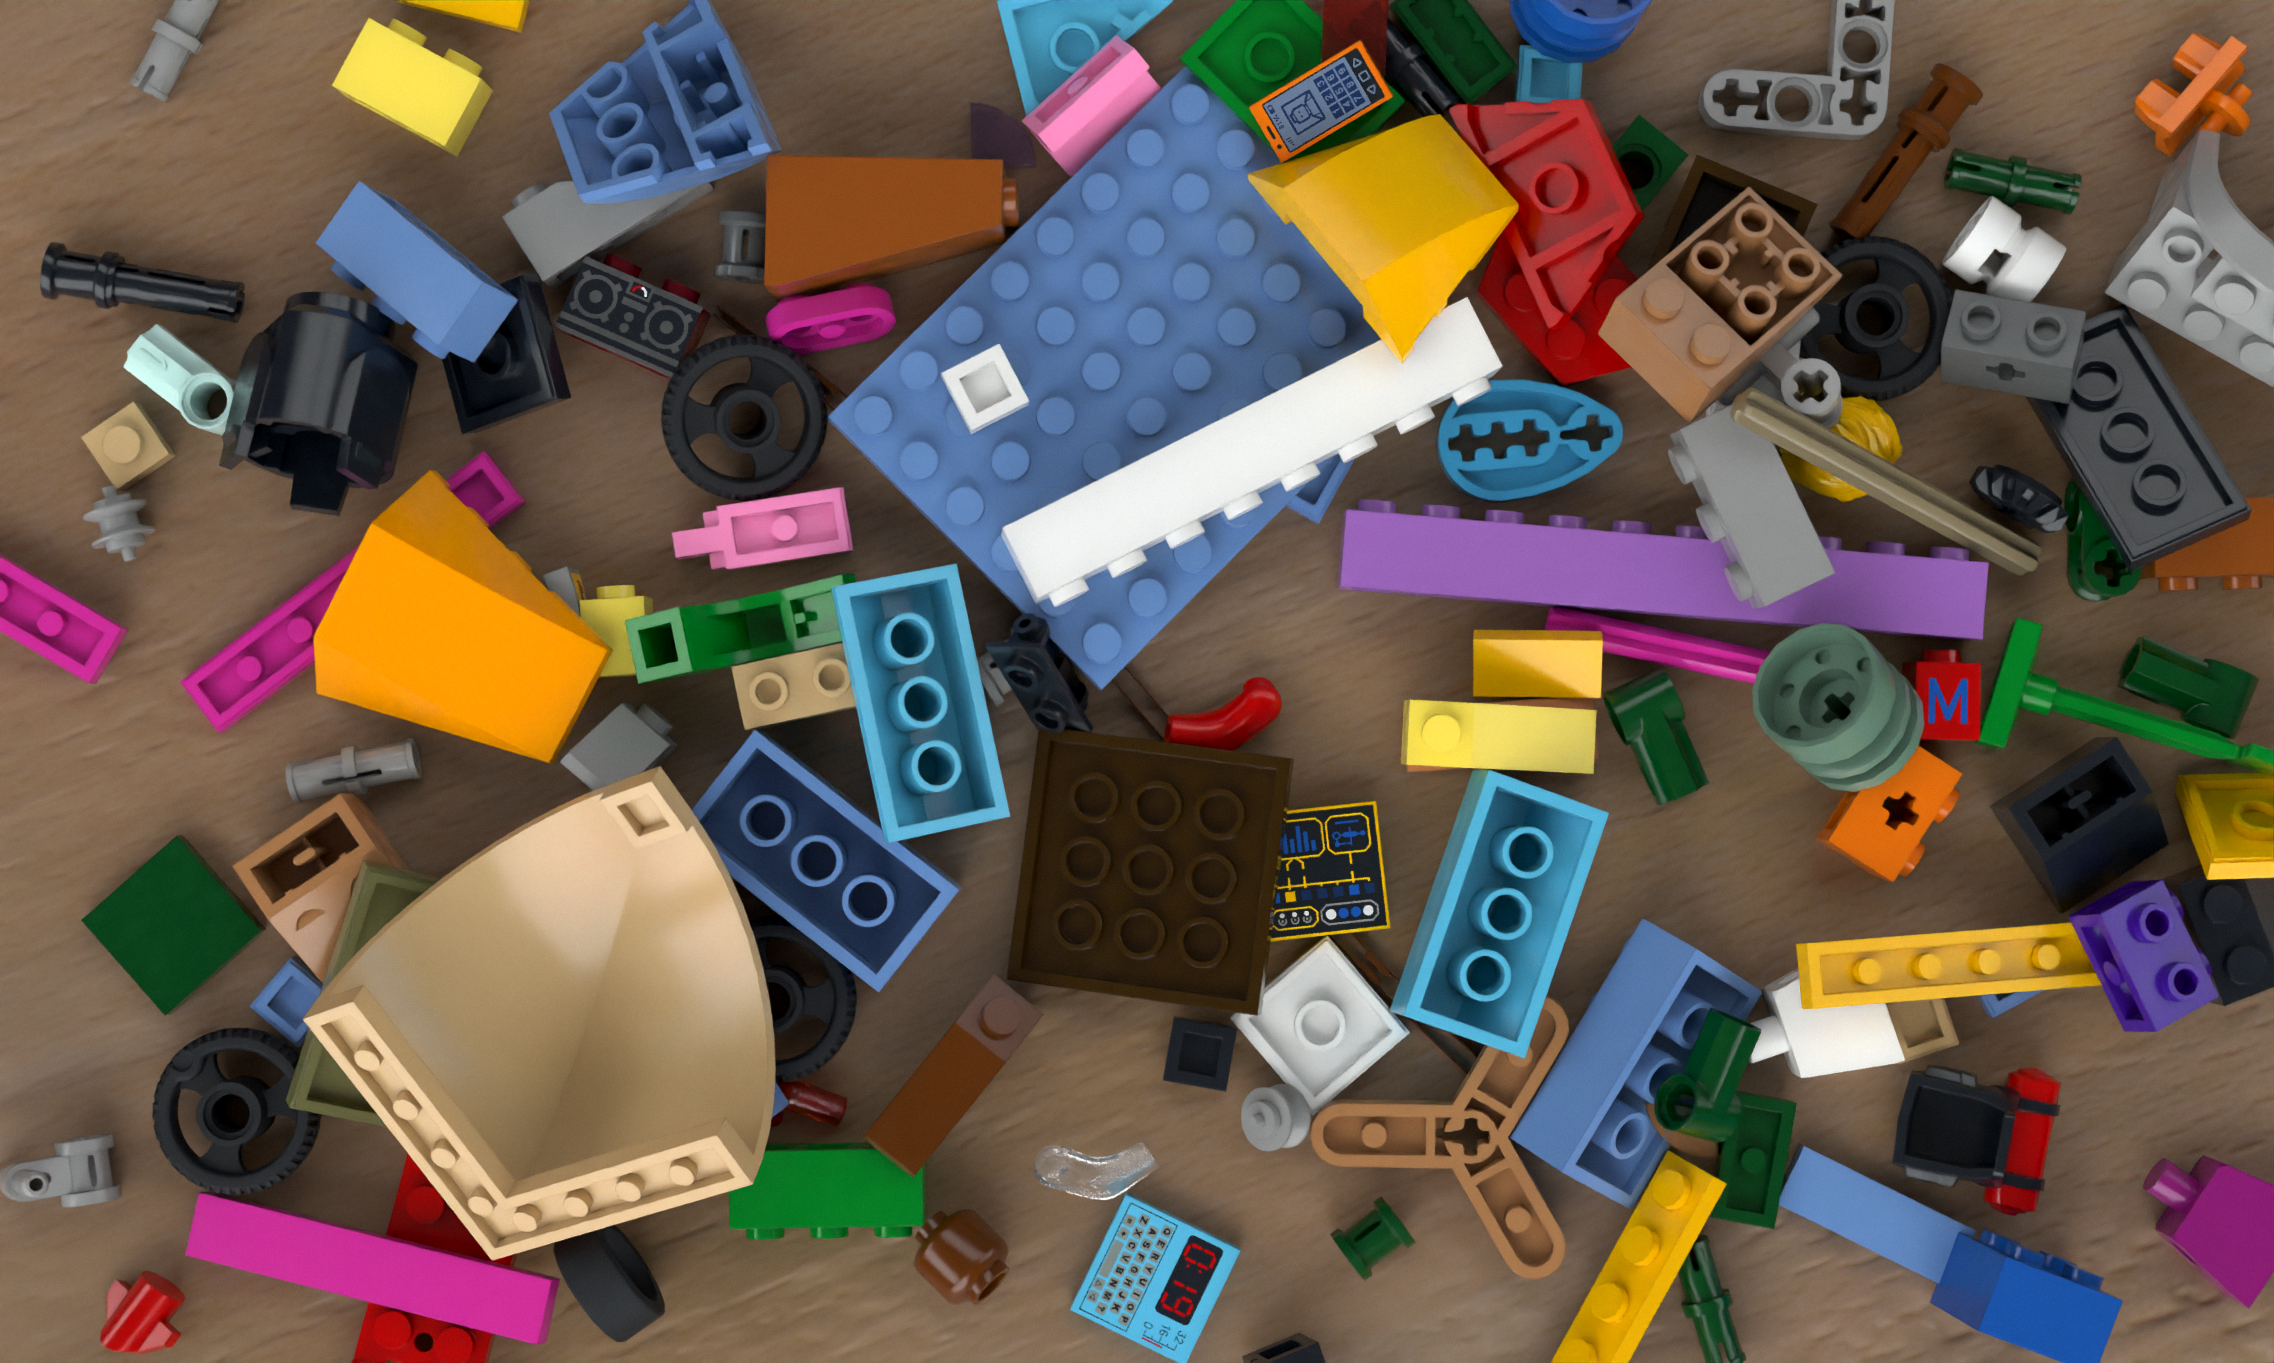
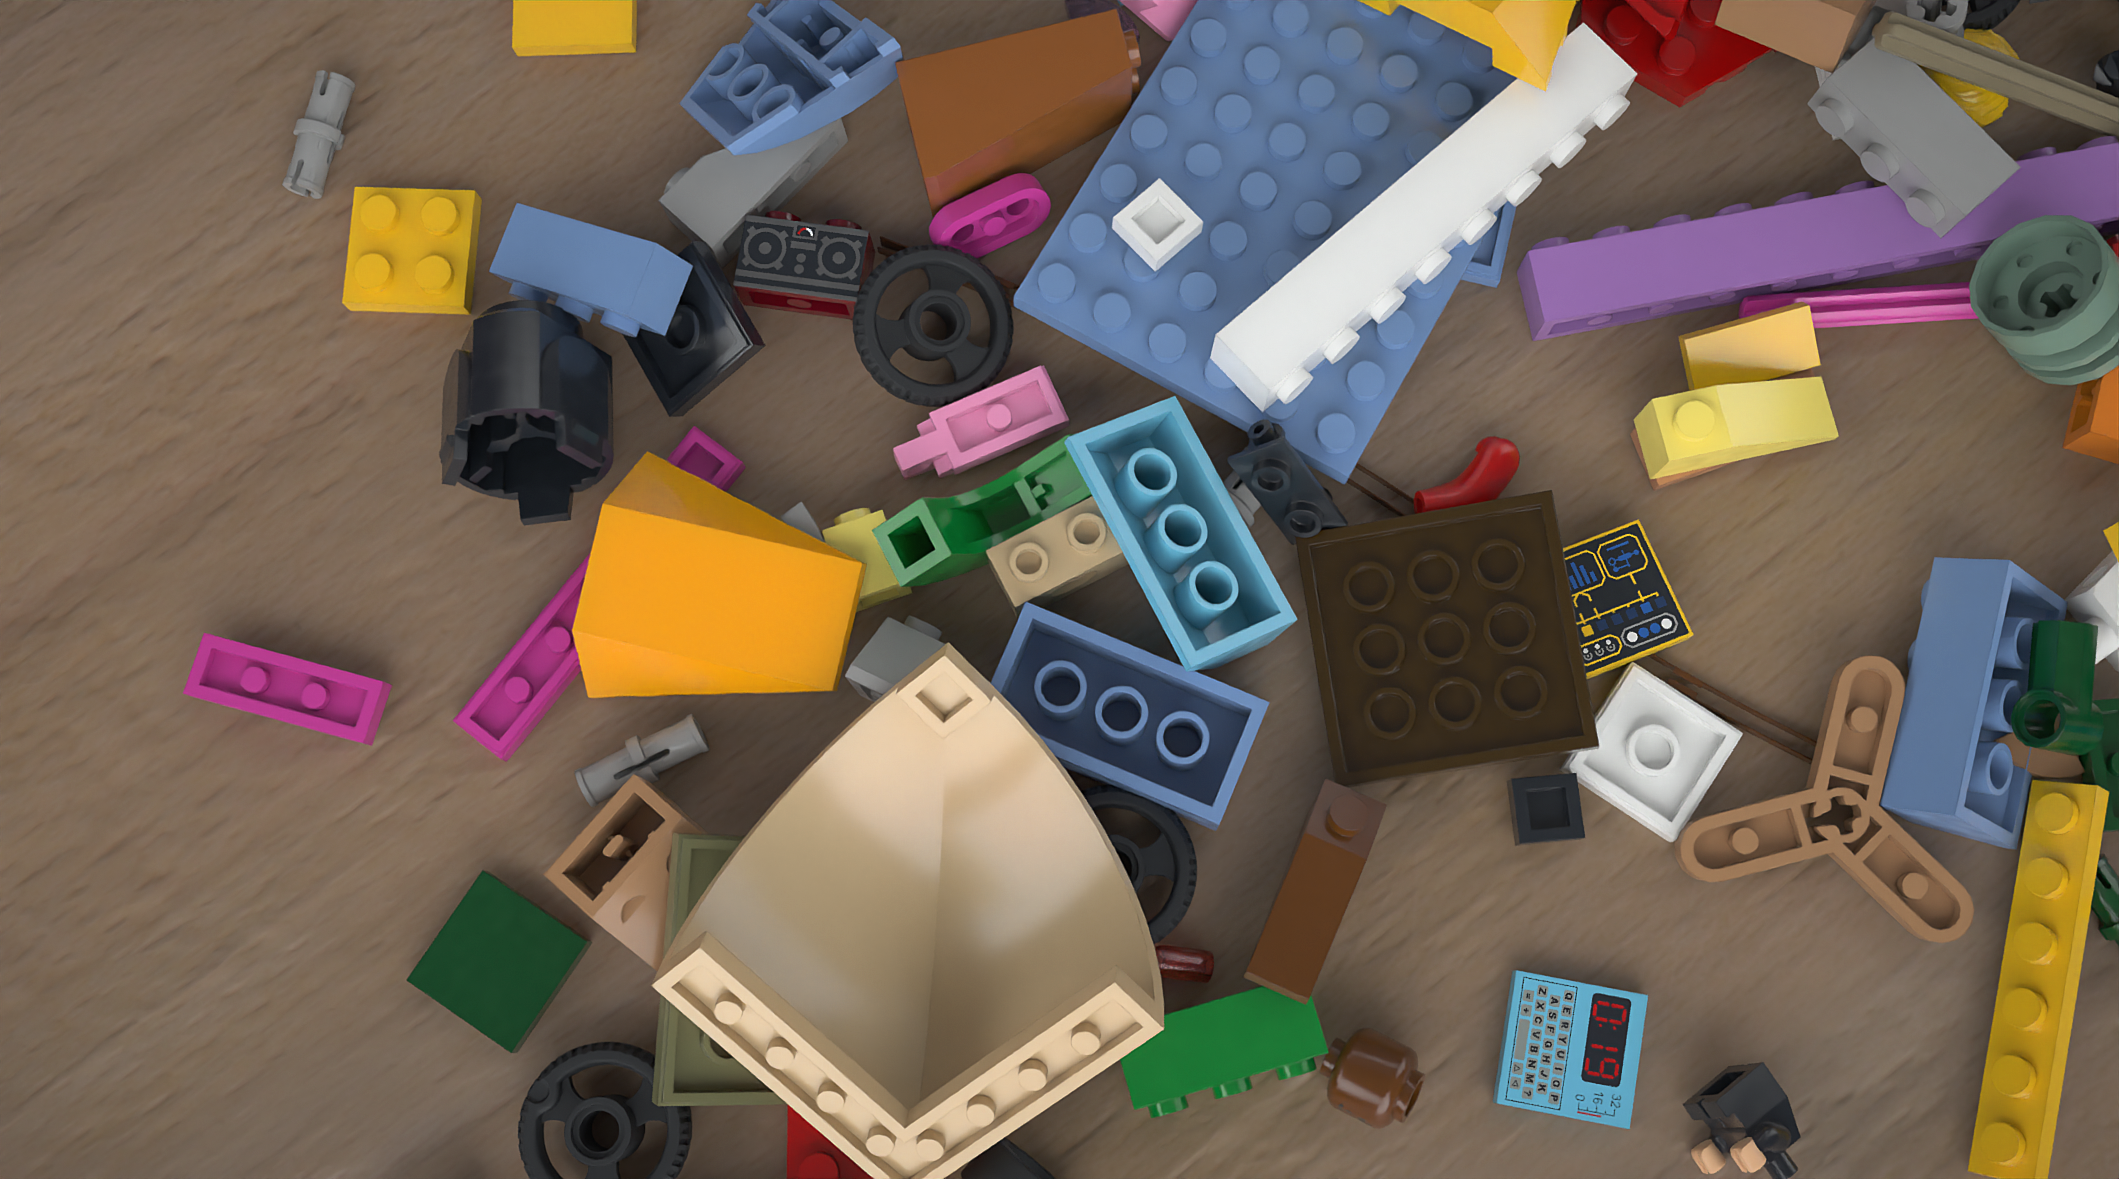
camera: 10 degrees left, 10 degrees down
(114, 281) = (306, 364): black pin -> none
(119, 523) = (360, 584): light grey wheel -> none
(128, 446) = (354, 514): tan plate -> none
(180, 376) = (389, 433): light aqua piece -> none
(245, 186) = (412, 250): none -> yellow plate
(289, 999) = (631, 1005): medium blue tile -> none
(414, 86) = (547, 115): light yellow brick -> none
(737, 225) = (891, 155): dark grey bush -> none
(1091, 1175) = (1479, 960): clear arm -> none
(1275, 1117) = (1641, 851): light grey wheel -> none
(1372, 1238) = (1776, 945): dark green bush -> none
(1499, 911) = (1797, 586): medium azure slope -> none
(1516, 475) = (1667, 190): dark azure piece -> none
(1650, 721) = (1874, 374): dark green piece -> none

